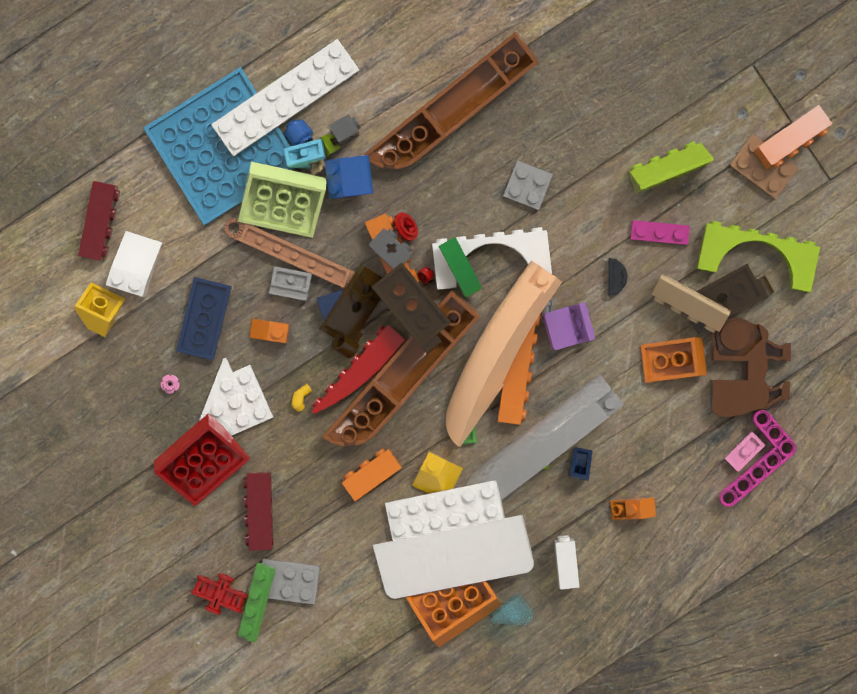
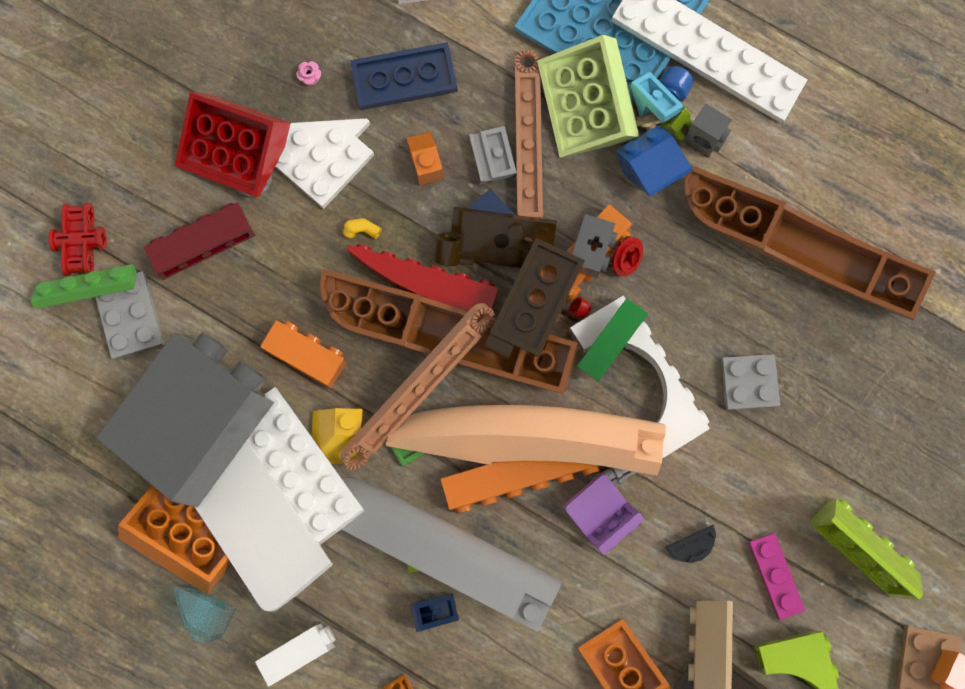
camera: 65 degrees right, 10 degrees down
(383, 567) = (187, 418): none -> dark grey brick
(431, 408) = (417, 386): none -> nougat plate

